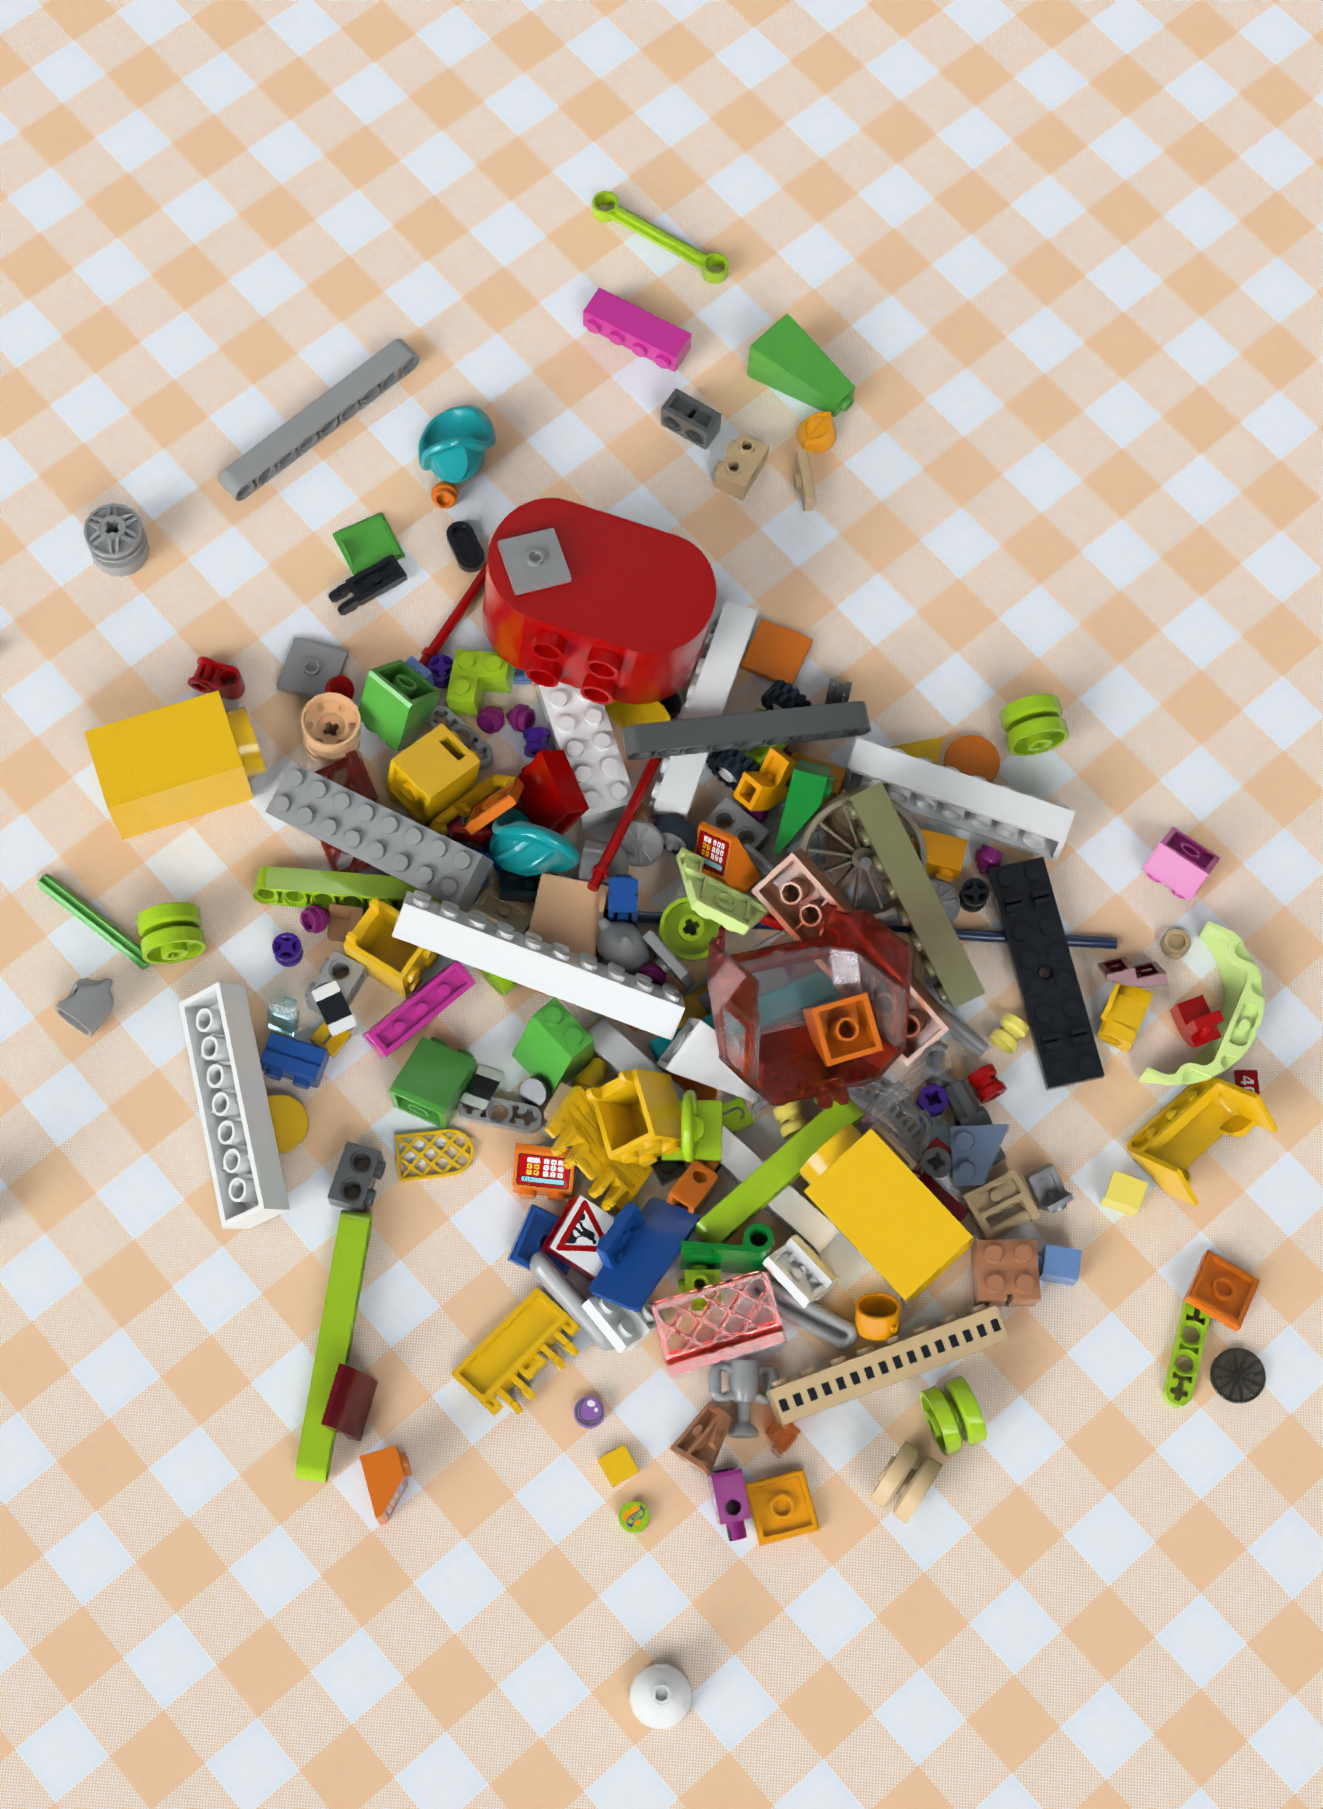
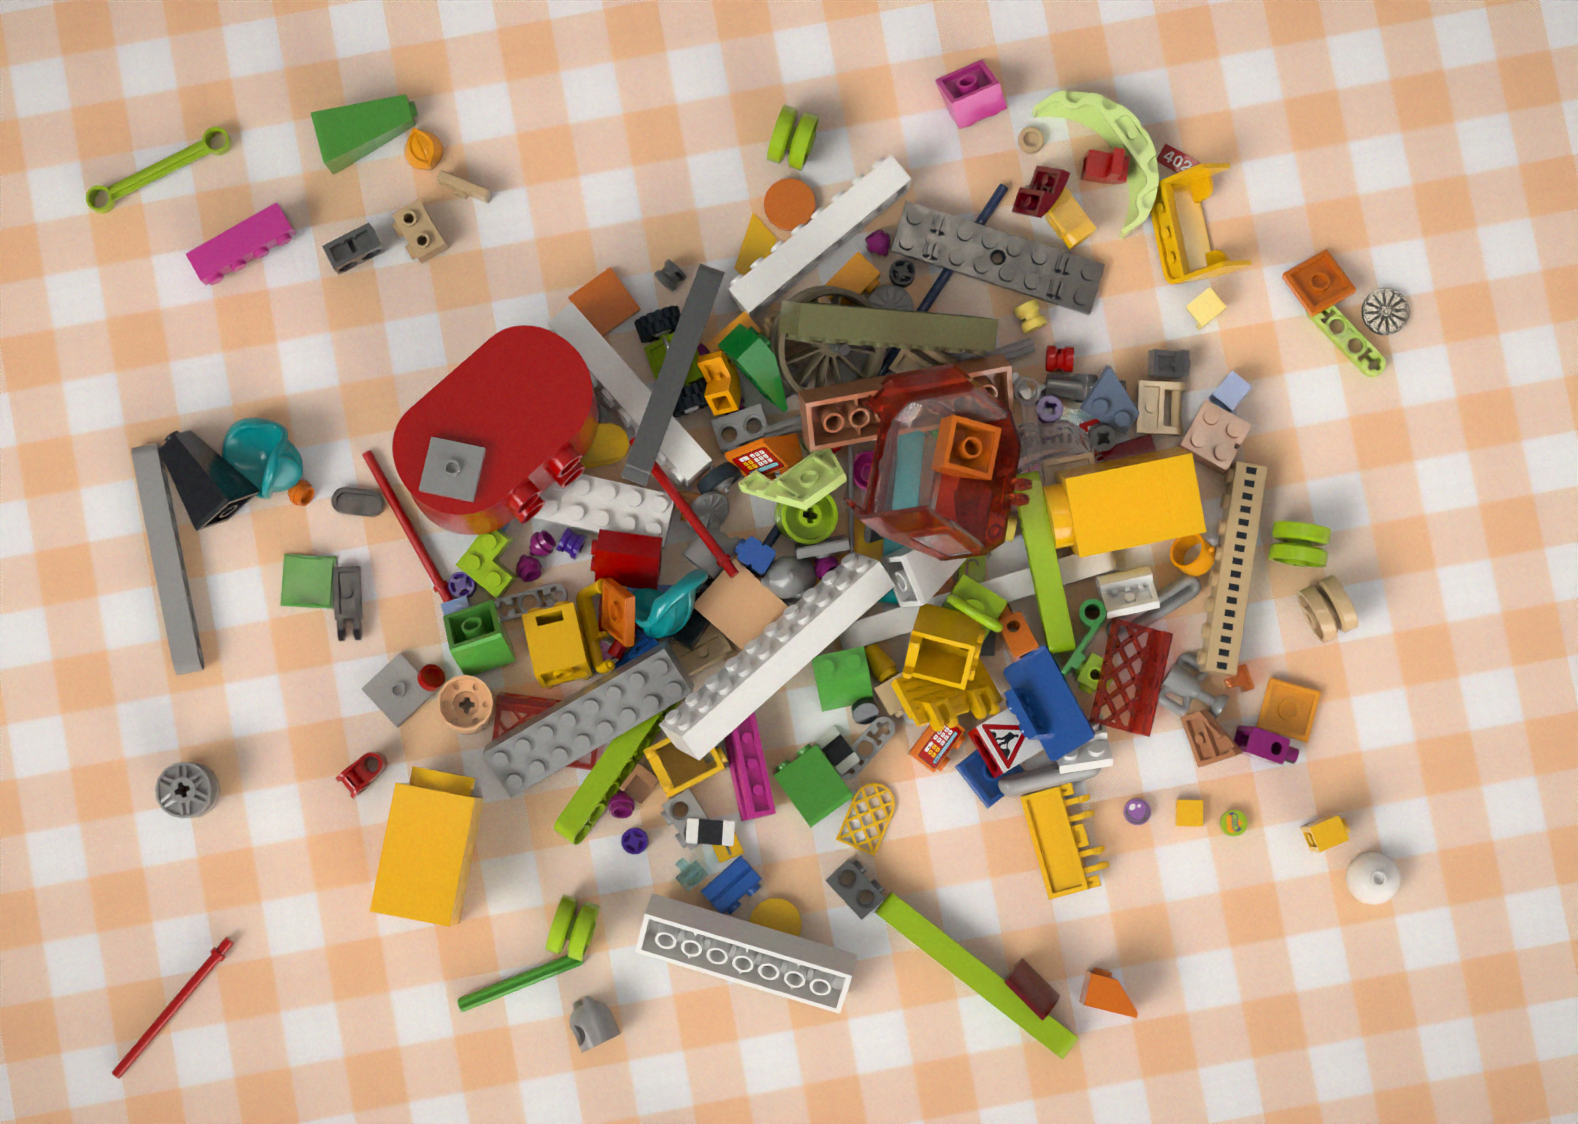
camera: 50 degrees left, 15 degrees up
(406, 409) = (205, 480): none -> black slope
(677, 1613) = (1326, 833): none -> yellow brick

